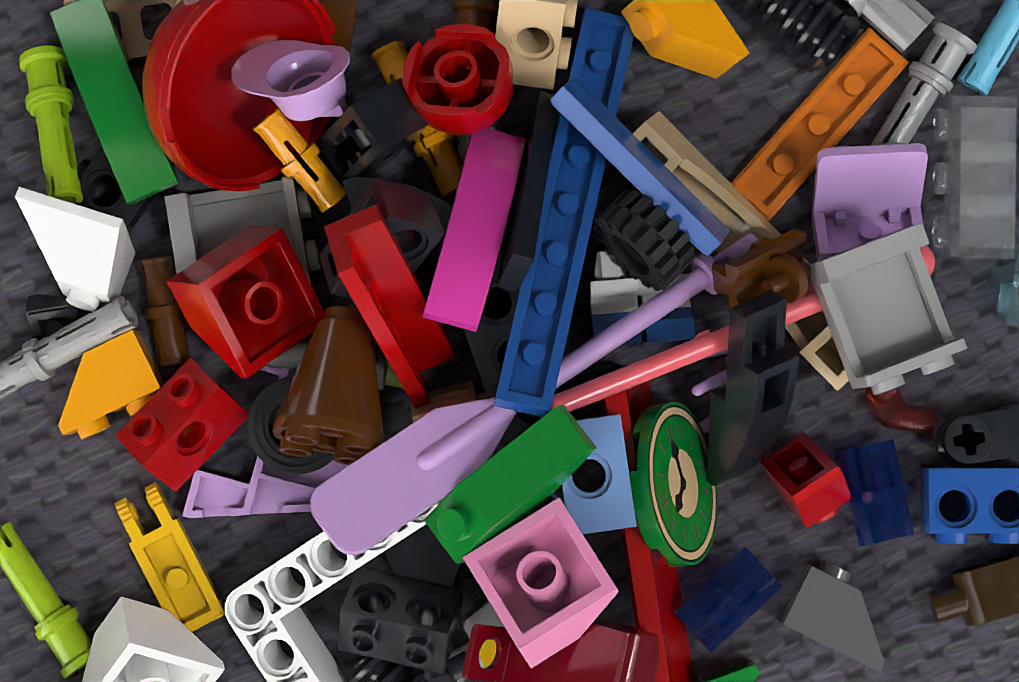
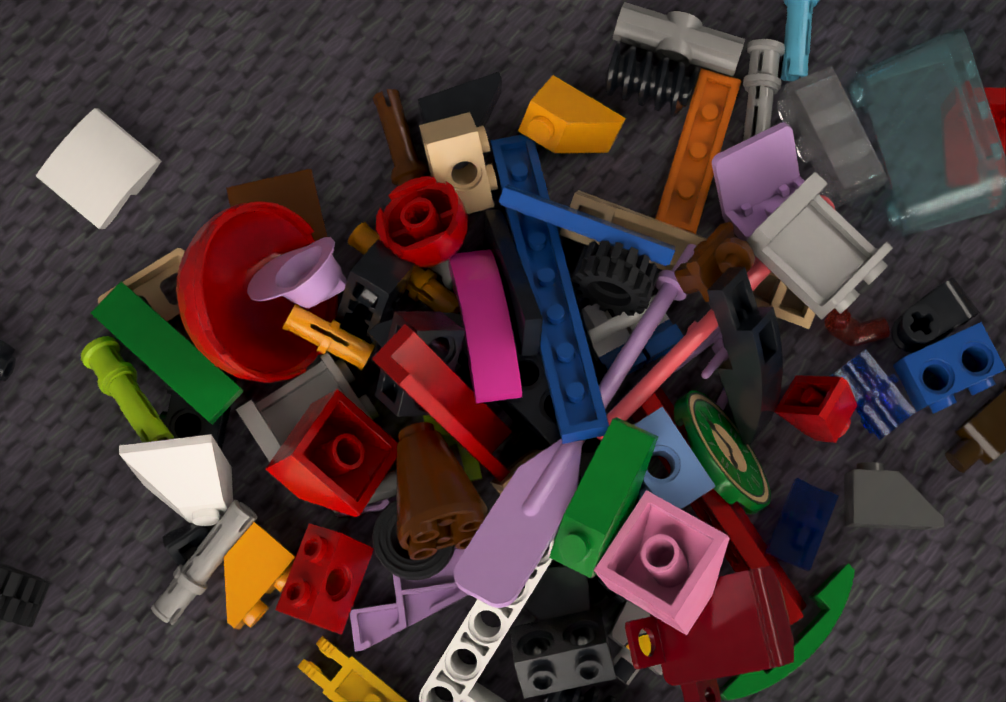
camera: 30 degrees left, 10 degrees down
(164, 312) = (273, 499): reddish brown pin -> none

